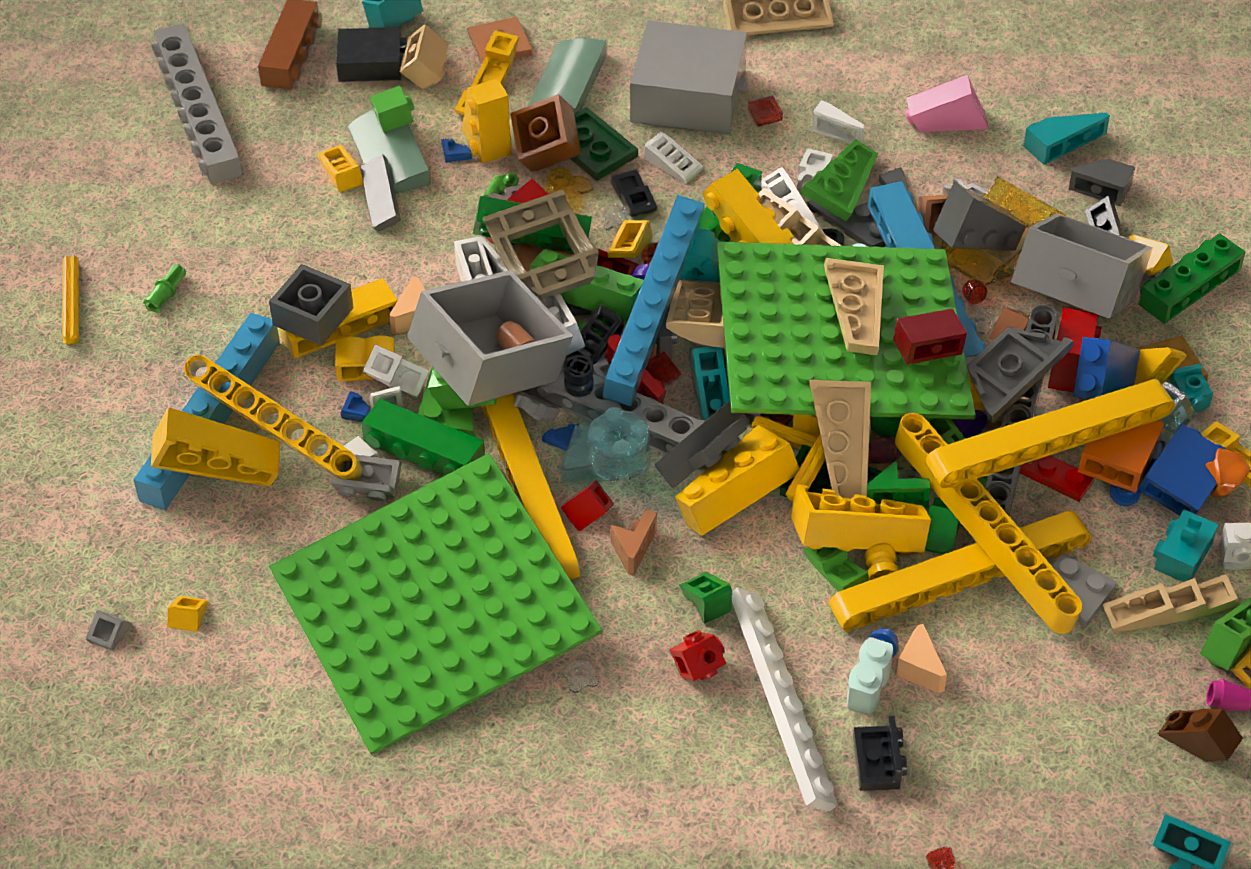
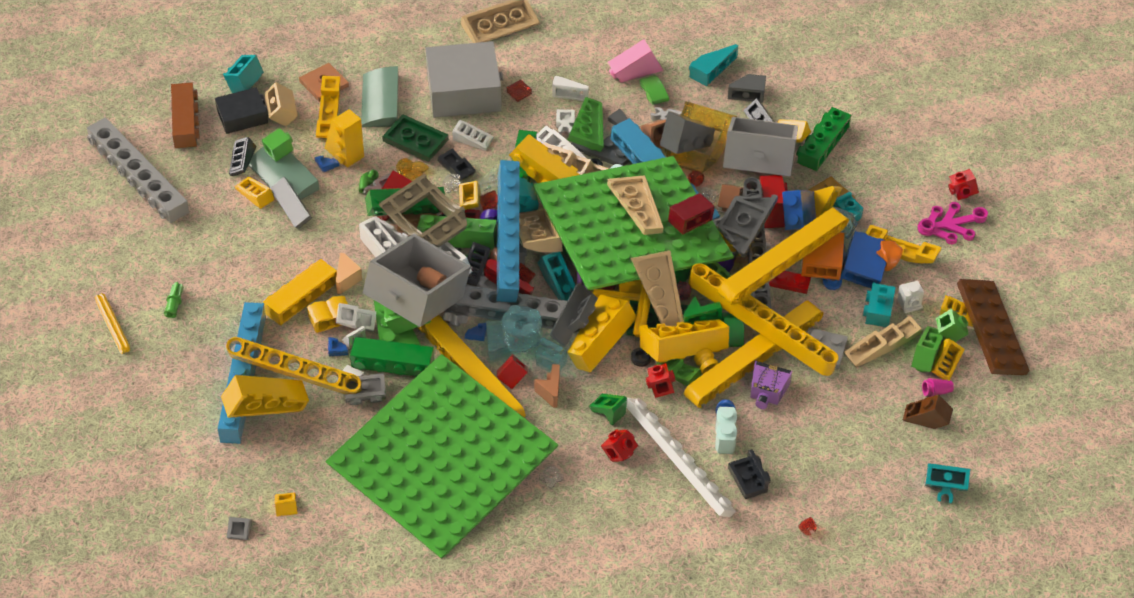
camera: 20 degrees left, 0 degrees up
(311, 304) = (286, 287): dark grey brick -> none
(343, 114) = (242, 154): none -> black slope
(545, 133) = (387, 138): dark orange brick -> none
(578, 375) = (477, 291): black wheel -> none
(651, 494) = (550, 354): none -> clear light blue brick
(785, 533) = (640, 357): none -> black tile
(799, 574) = (660, 380): none -> red brick
(921, 663) = (753, 414): light nougat slope -> none
(962, 152) = (654, 89): none -> bright green slope
(965, 623) = (769, 384): none -> medium lavender torso

